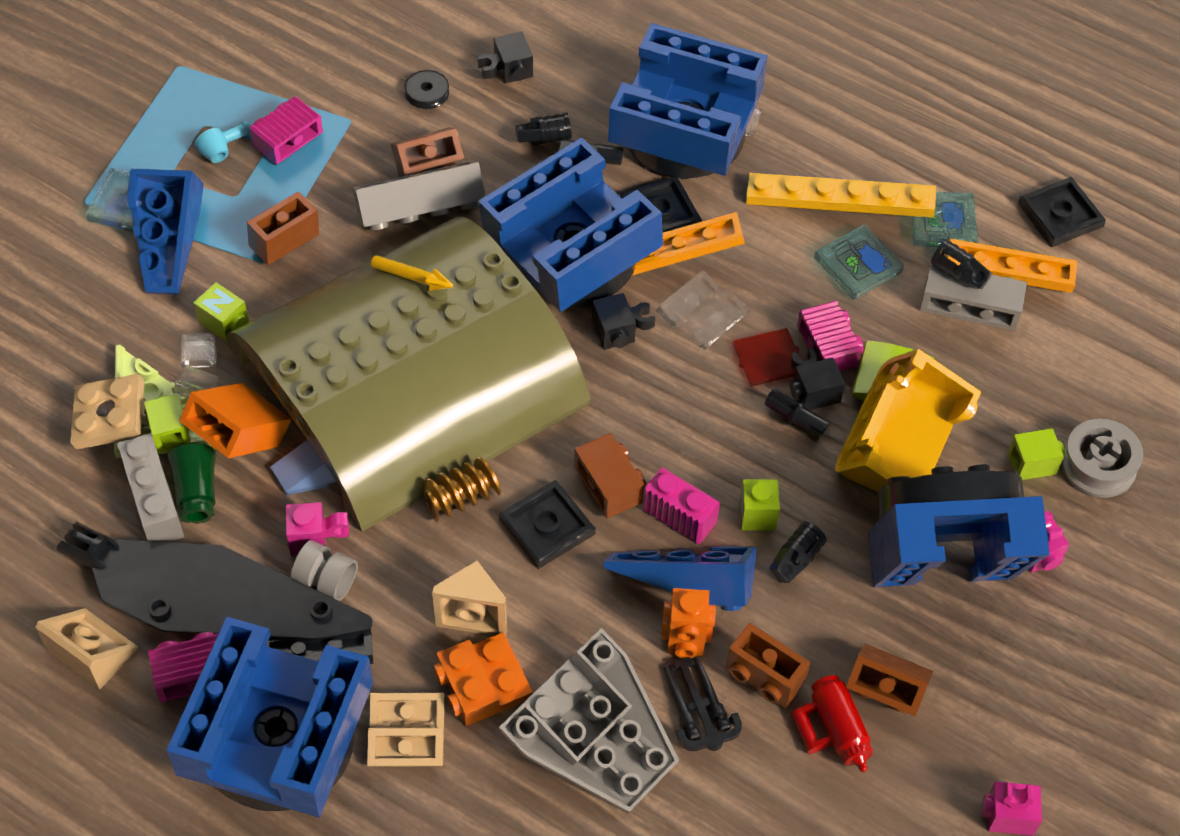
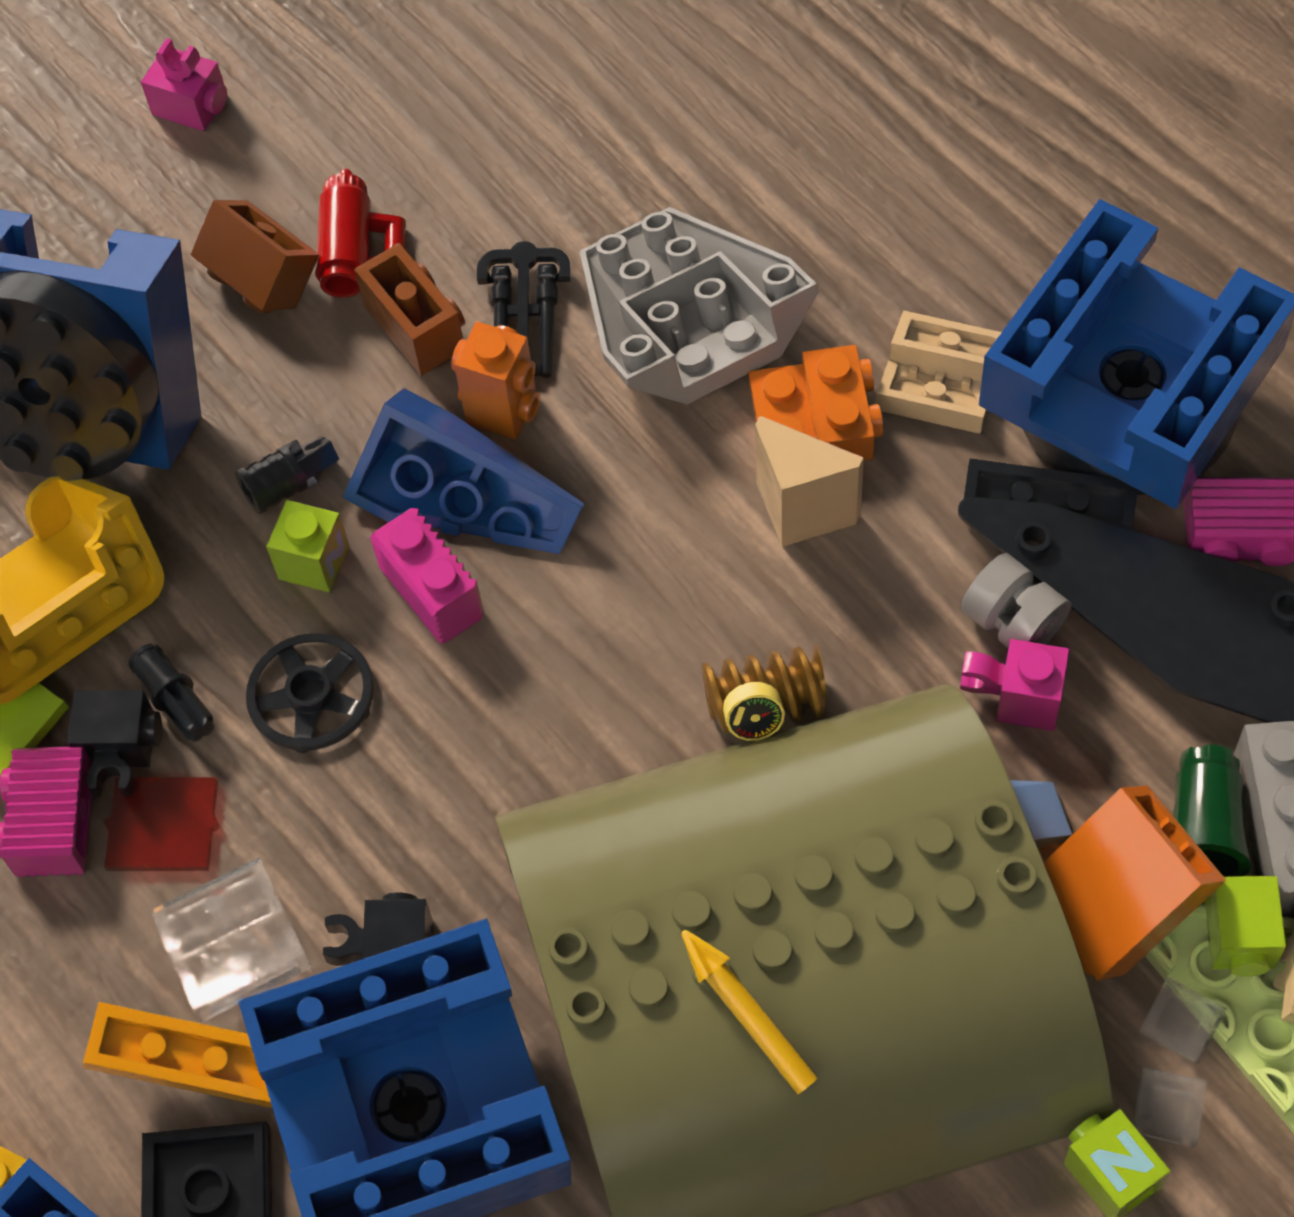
camera: 155 degrees left, 5 degrees up
(459, 456) = (753, 711): none -> tile
(547, 524) = (642, 622): black tile -> none
(609, 475) = (519, 648): dark orange brick -> none
(722, 440) = (310, 691): none -> black wheel

